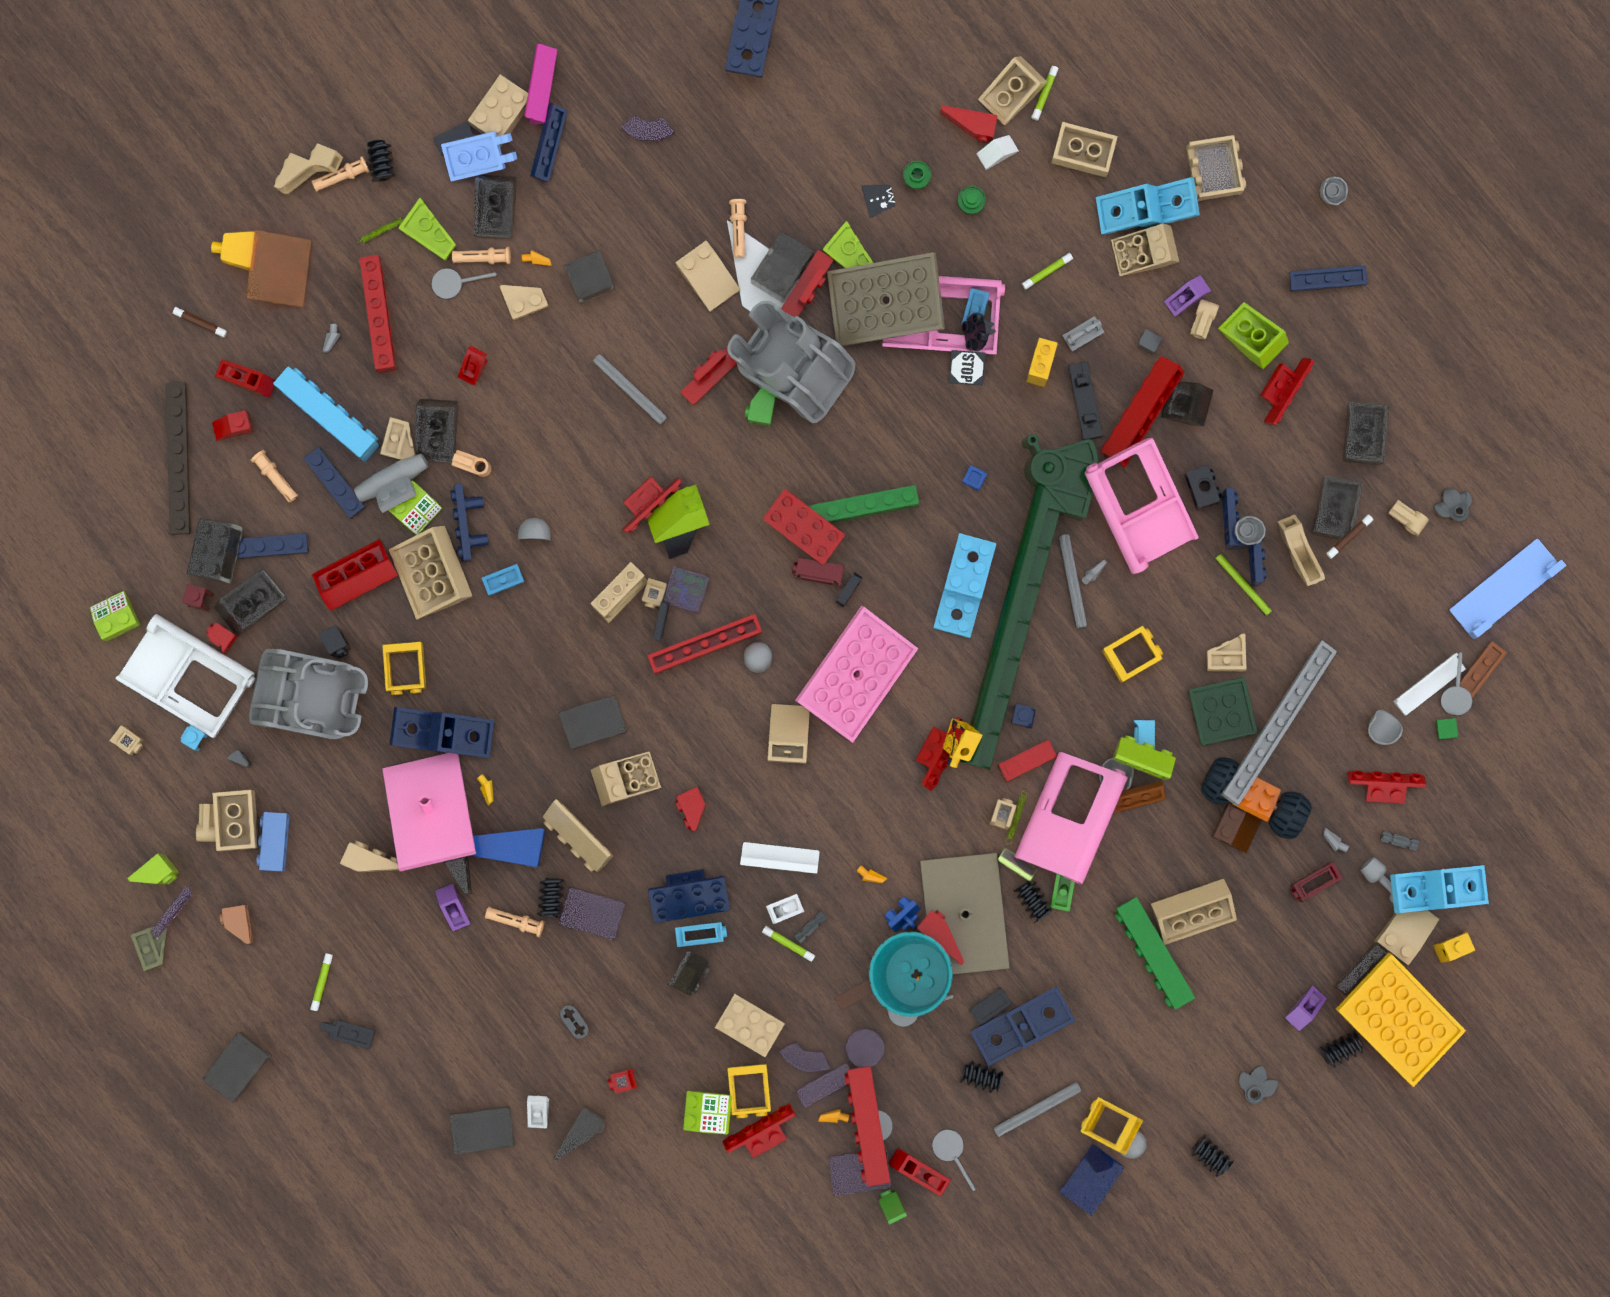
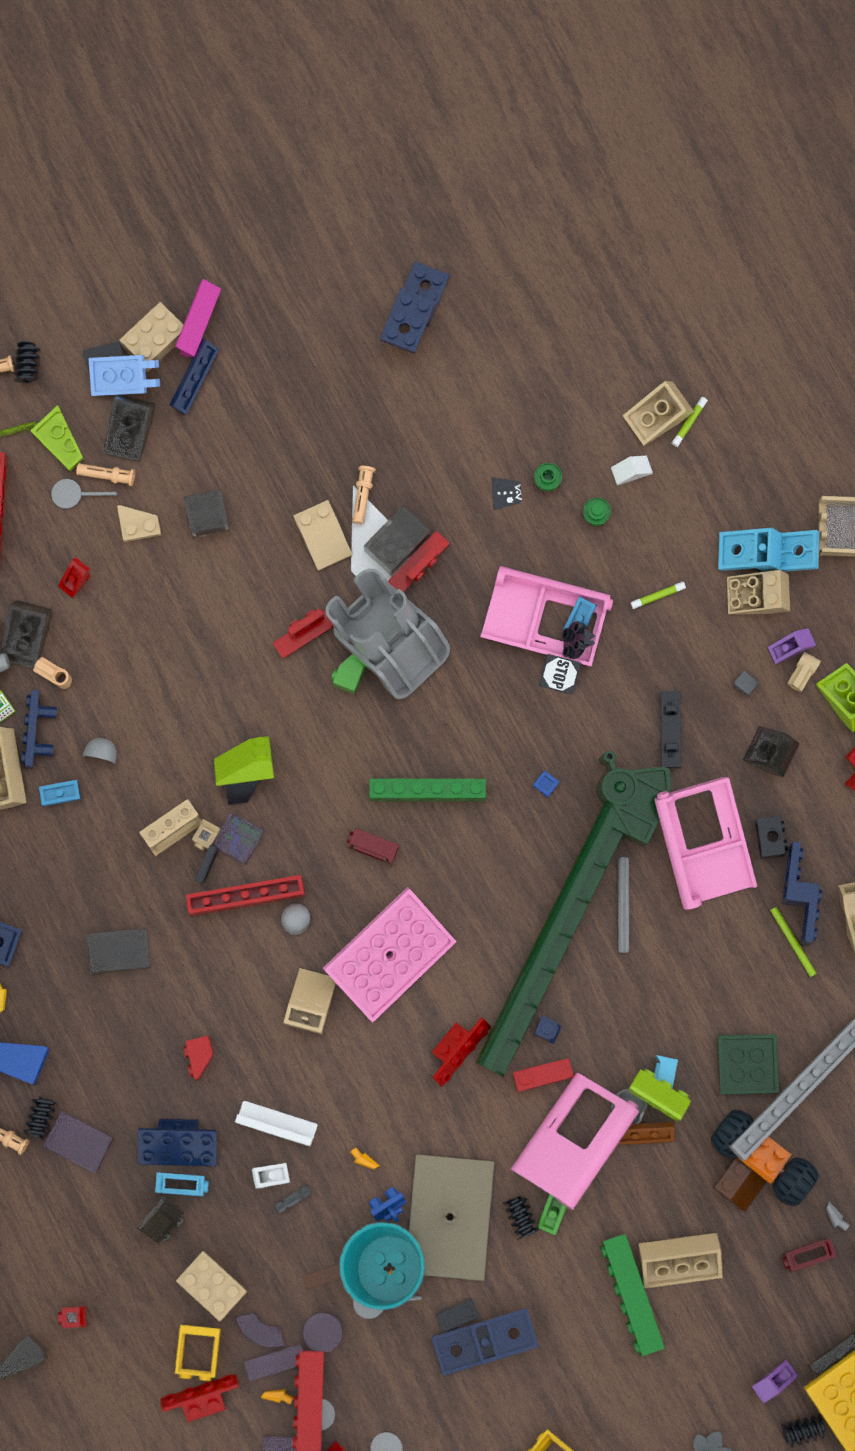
camera: 10 degrees right, 5 degrees down
(536, 258) = (159, 486): light orange bar -> none
(578, 836) = (79, 1061): tan slope -> none
(578, 1018) = (33, 1249): dark grey beam -> none
(625, 778) = (139, 1013): tan slope -> none
(630, 389) = (224, 631): light grey axle -> none
(645, 499) = (217, 740): red bracket -> none
(646, 130) = (293, 383): clear purple tile -> none
(707, 1112) = (150, 1366): slope -> none
(788, 943) = (267, 1211): lime bar -> none
(804, 526) = (366, 798): red bracket -> none
(846, 248) = (467, 542): lime wing -> none
(849, 589) = (399, 870): black beam -> none
(886, 299) = (492, 591): dark tan piece -> none
(937, 928) = (419, 1227): red slope -> none
(961, 742) = (479, 1042): yellow torso -> none
(964, 585) = (514, 888): medium azure bracket -> none
(976, 124) = (616, 439): red slope -> none
(981, 1076) = (433, 1385): black piece -> none
(1003, 814) = (508, 1123): tan window -> none
(1018, 818) = (522, 1130): lime piece -> none
(1019, 866) = (516, 1181): slope -> none
(1037, 1109) = (483, 1430): light grey axle -> none
(1041, 362) = (634, 682): yellow window -> none
(1083, 333) = (681, 663): light grey hinge -> none
(1084, 149) = (717, 483): tan brick -> none
(1092, 573) = (644, 901): light grey bar -> none
(1117, 666) = (650, 996): yellow window -> none
(1144, 408) = (727, 747): red brick -> none
(1228, 656) = (764, 1010): tan wing -> none
(1249, 530) = (808, 887): light grey hair -> none

